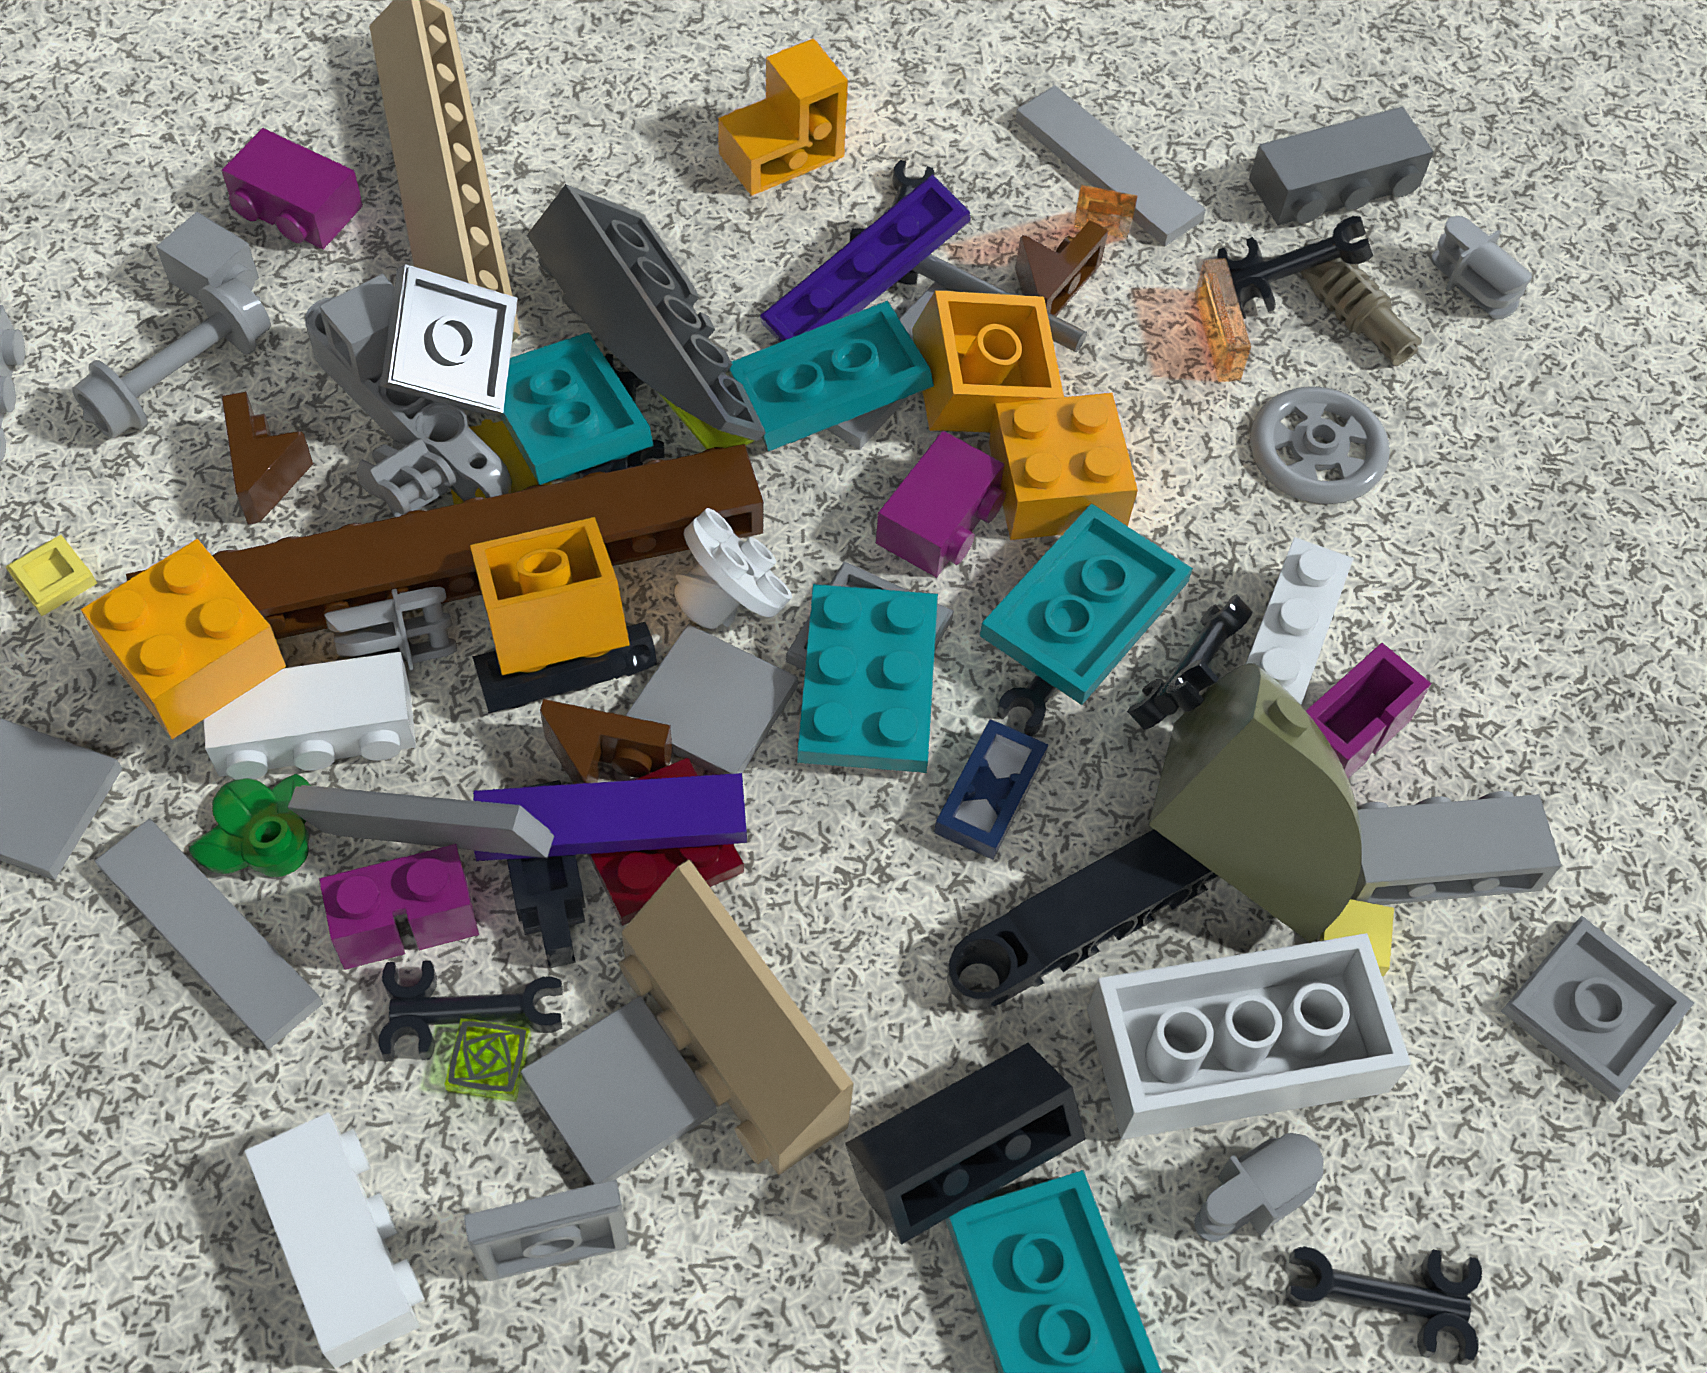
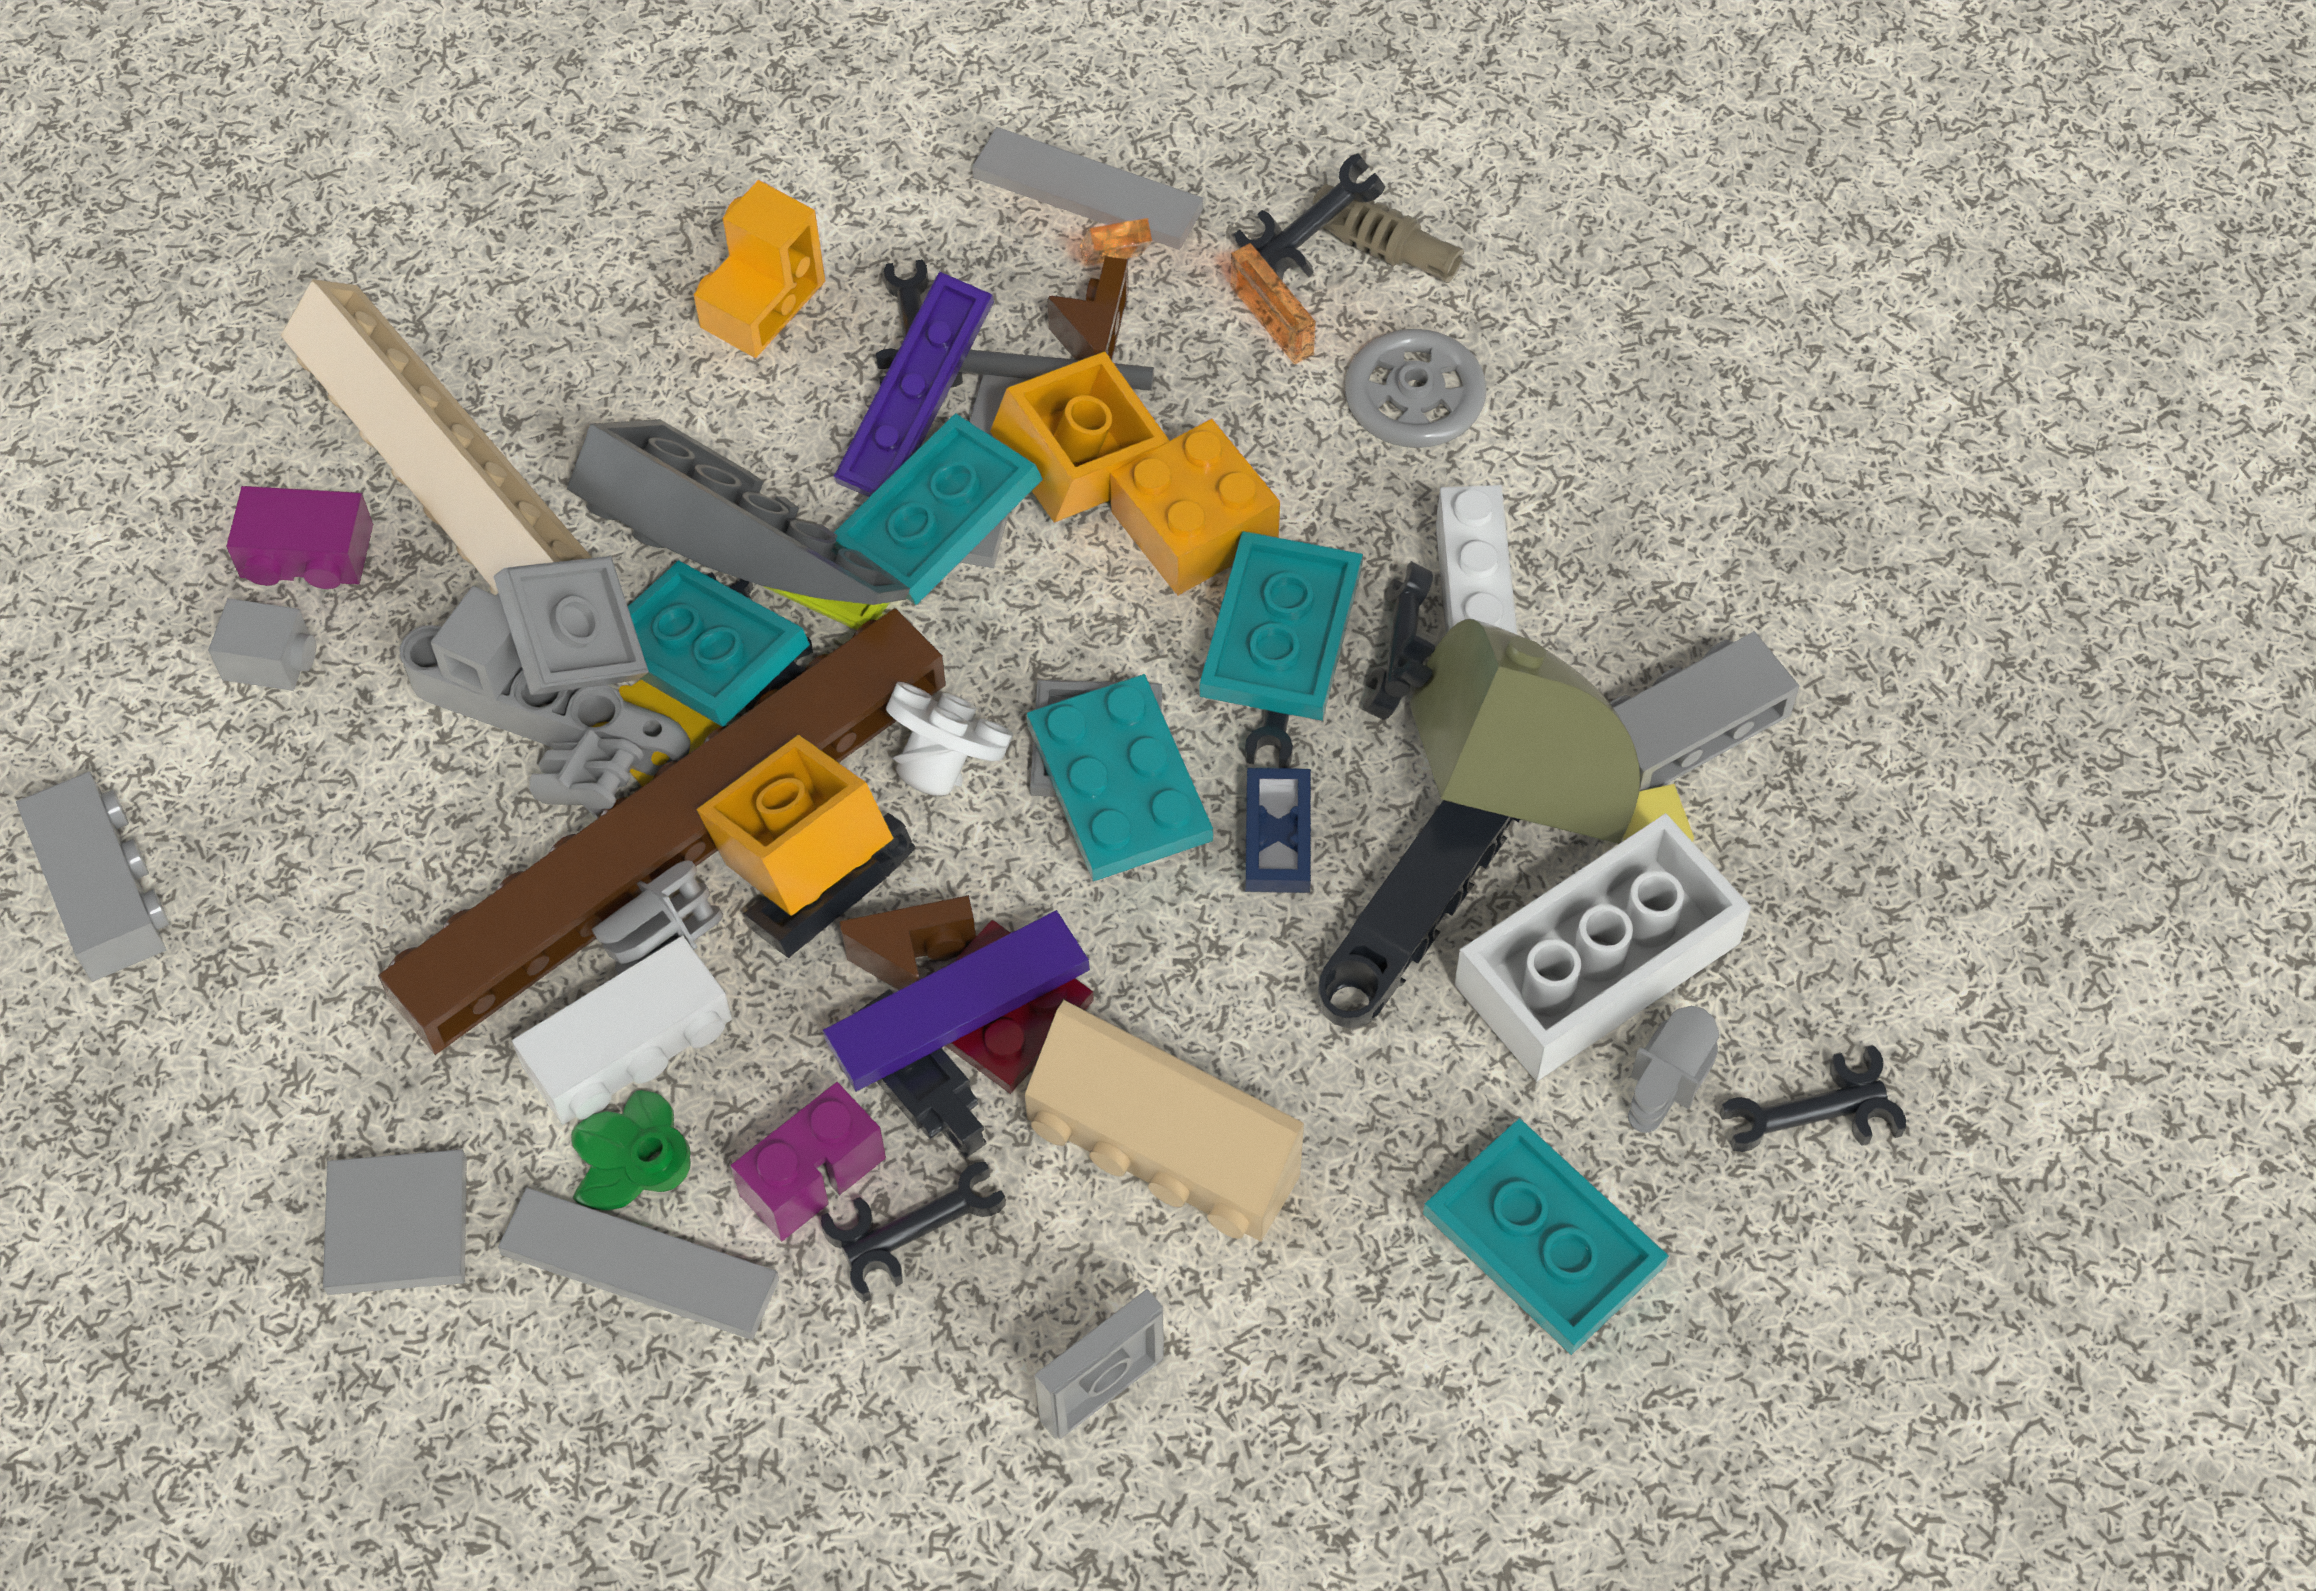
camera: 20 degrees left, 0 degrees up
(51, 575) = (287, 1011): light yellow tile -> none
(112, 400) = (251, 817): light grey piece -> none
(184, 638) = (484, 1006): light orange brick -> none
(261, 463) = (433, 820): reddish brown slope -> none
(335, 1238) = (912, 1460): white brick -> none
(422, 820) = (793, 1074): light grey tile -> none
(488, 1060) = (957, 1258): tile -> none
(618, 1092) = (1087, 1234): light grey tile -> none
(714, 700) = (987, 852): light grey tile -> none
(941, 504) = (1101, 589): magenta piece -> none
(965, 1142) = (1410, 1138): black brick -> none
(1340, 166) = (1310, 104): brick -> none
(1369, 706) = (1576, 611): magenta piece -> none
(1480, 267) = (1484, 155): light grey arm -> none
(1598, 1008) = (1880, 795): light grey tile -> none

